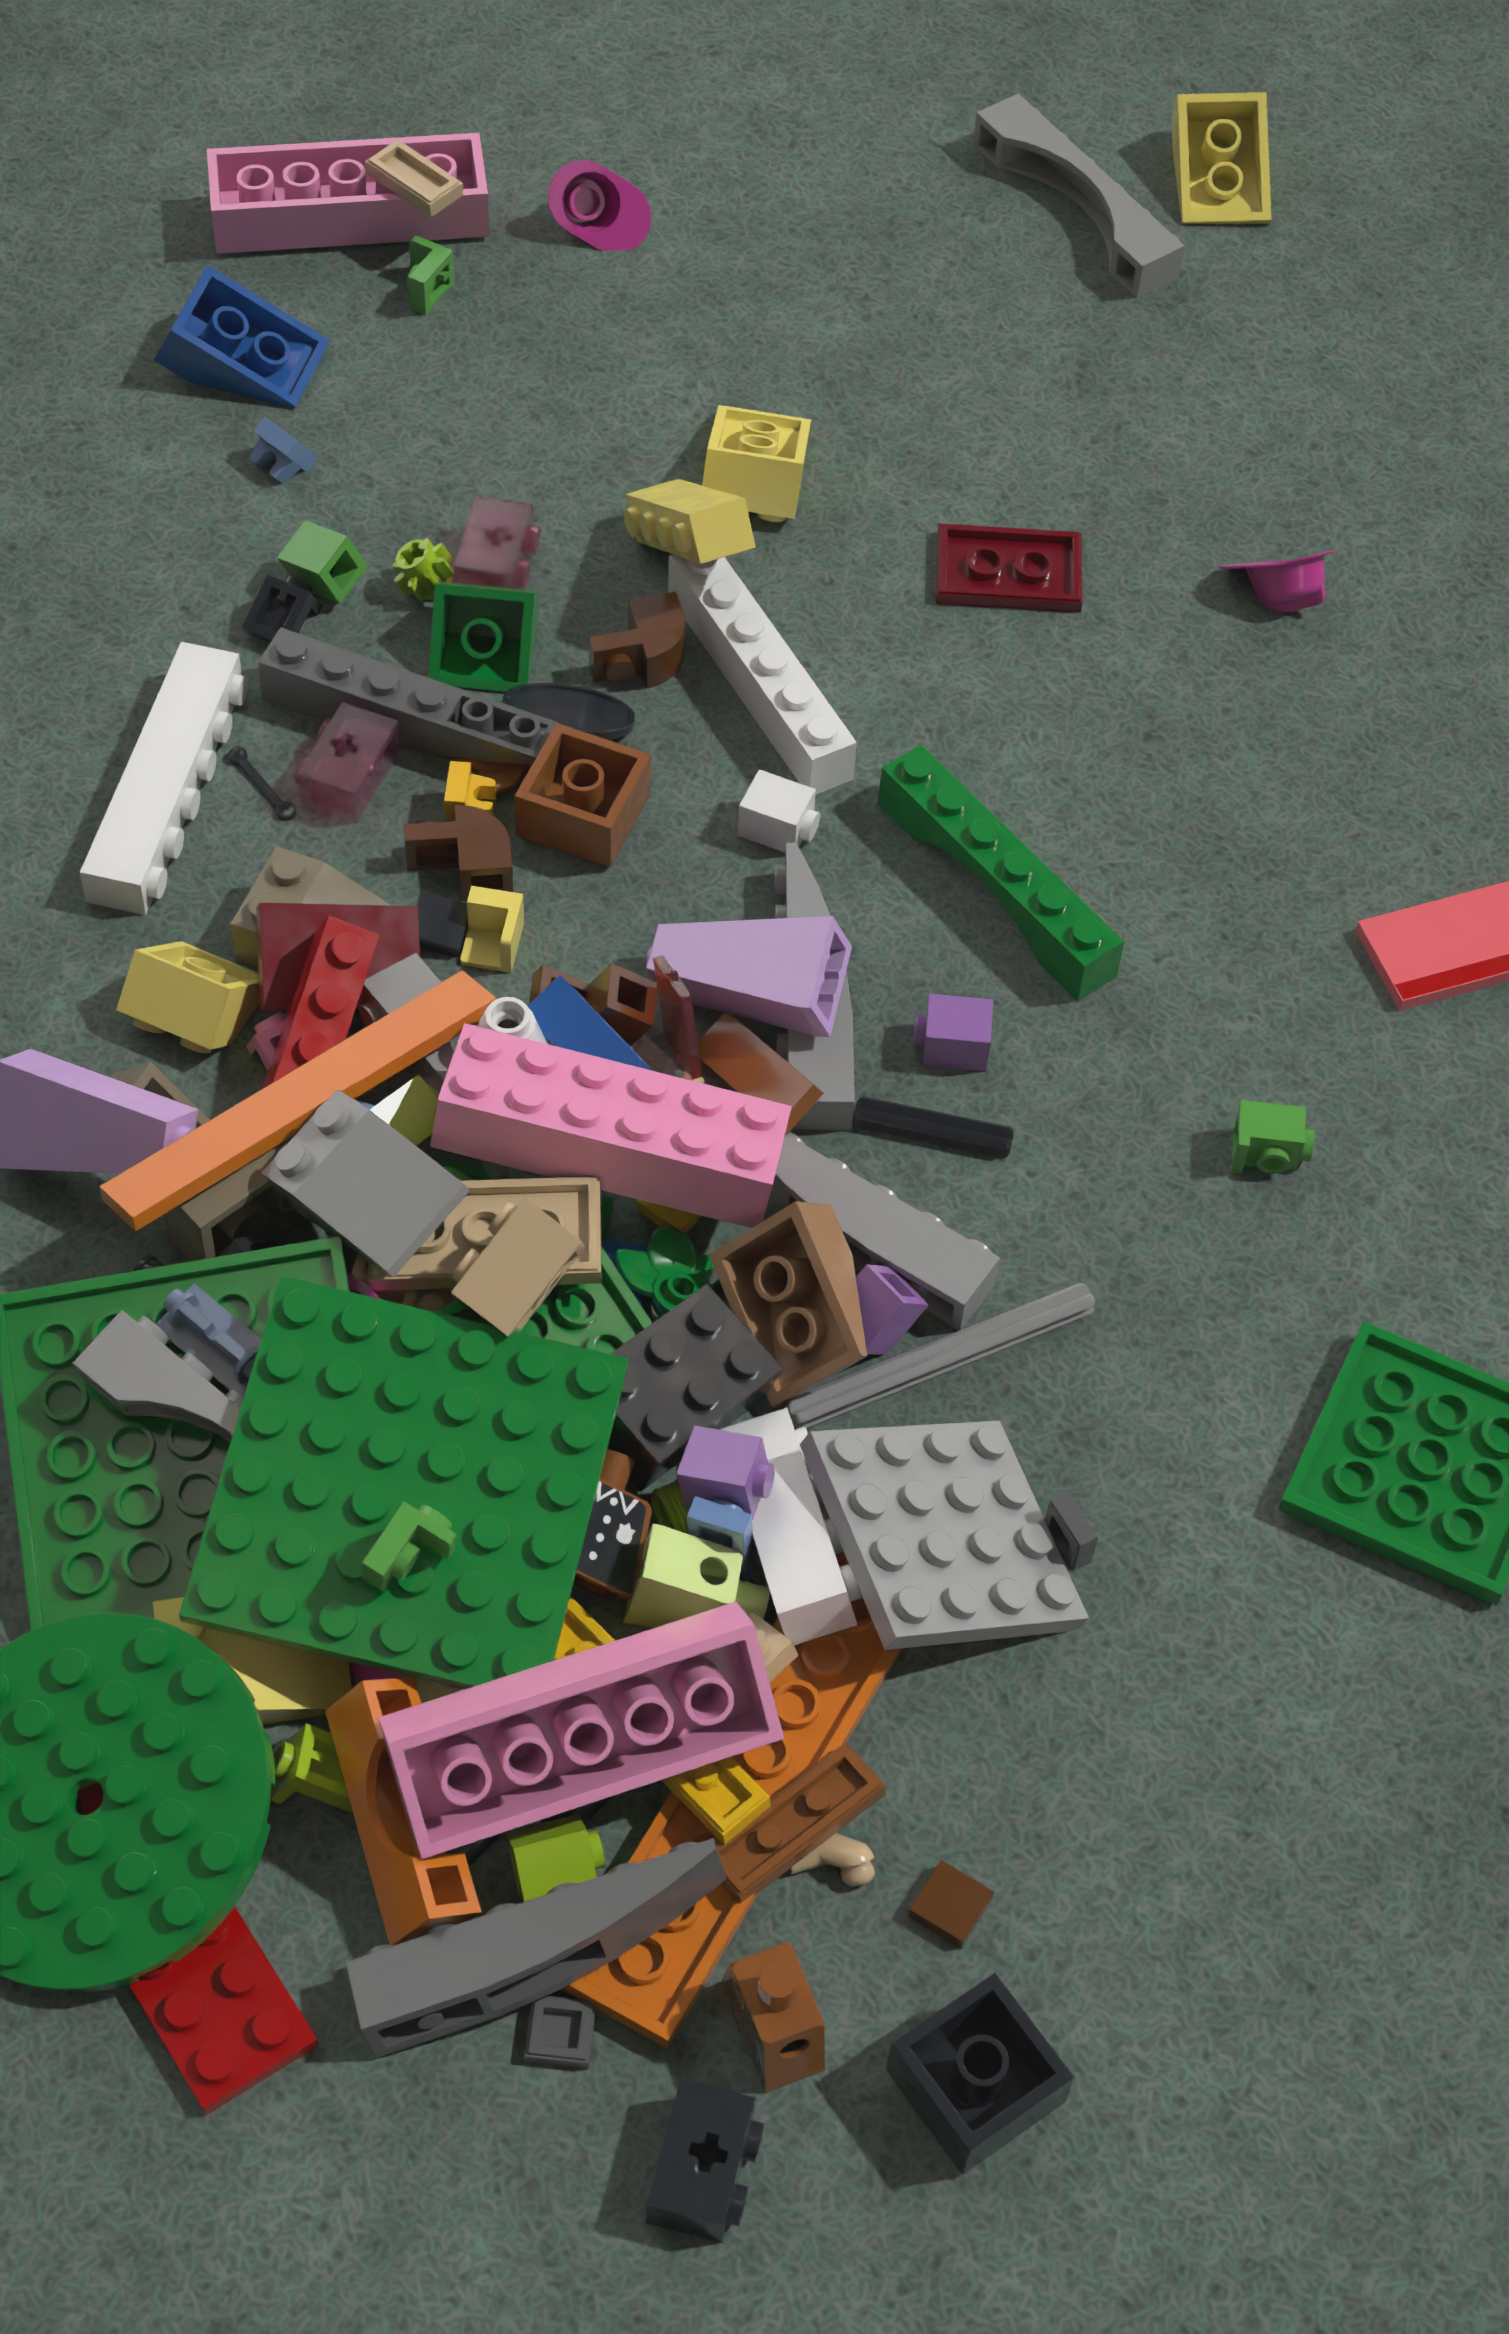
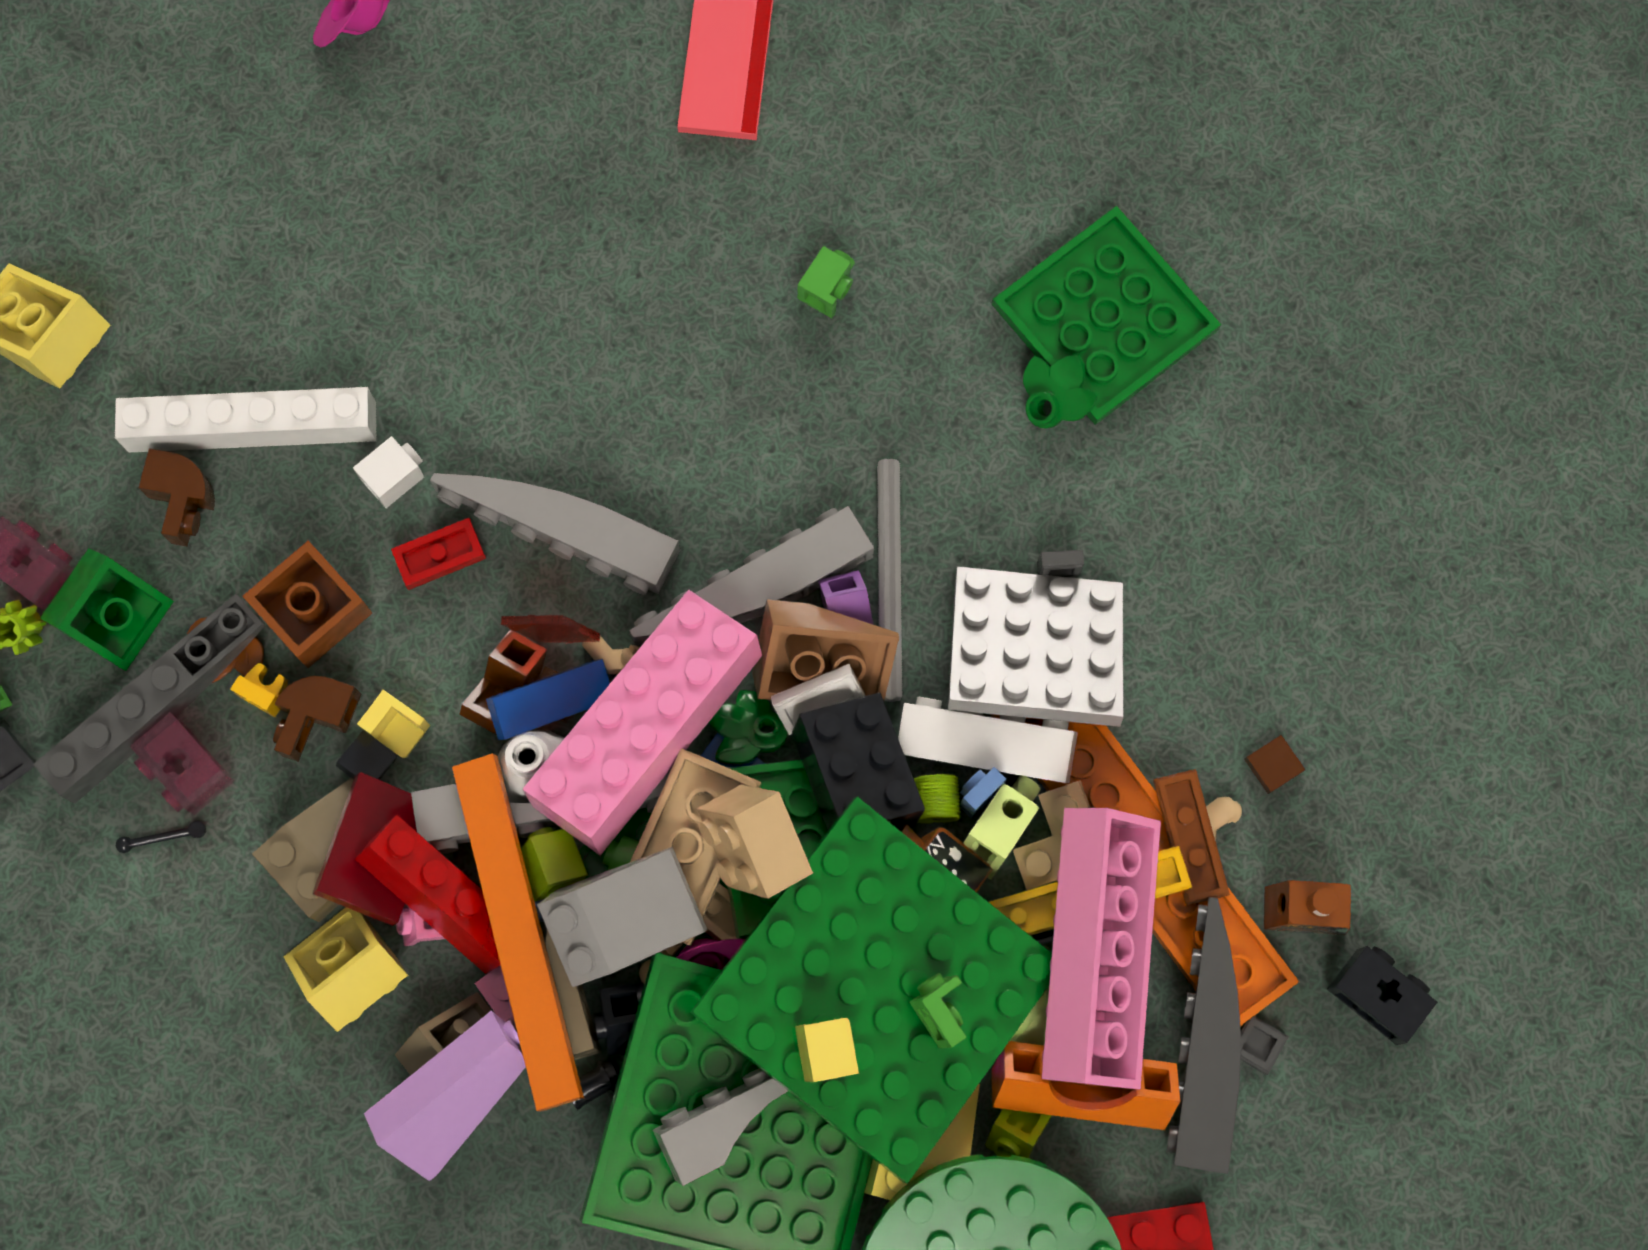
camera: 65 degrees left, 20 degrees up
(164, 779) = (124, 910): white brick -> none
(211, 1335) = (697, 1073): sand blue hinge -> none
(294, 1424) = (826, 1050): none -> light yellow panel
(553, 1855) = (1165, 1001): lime brick -> none
(574, 707) = (212, 577): black piece -> none
(689, 520) = (96, 408): light yellow brick -> none
(707, 891) = (438, 553): none -> red plate
(725, 1468) = (947, 767): medium lavender brick -> none
(756, 1068) = (619, 594): dark orange tile -> none
(761, 968) = (542, 550): lavender slope -> none
(762, 1317) = (819, 692): none -> white tile
(933, 1126) = (708, 494): black axle -> none
(955, 1032) = (642, 442): medium lavender brick -> none
(979, 2073) = (1401, 802): black brick -> none
(1009, 567) = (236, 193): dark red tile -> none
(1057, 923) = (461, 353): green arch -> none
(1288, 1436) = (1061, 387): none -> green plate

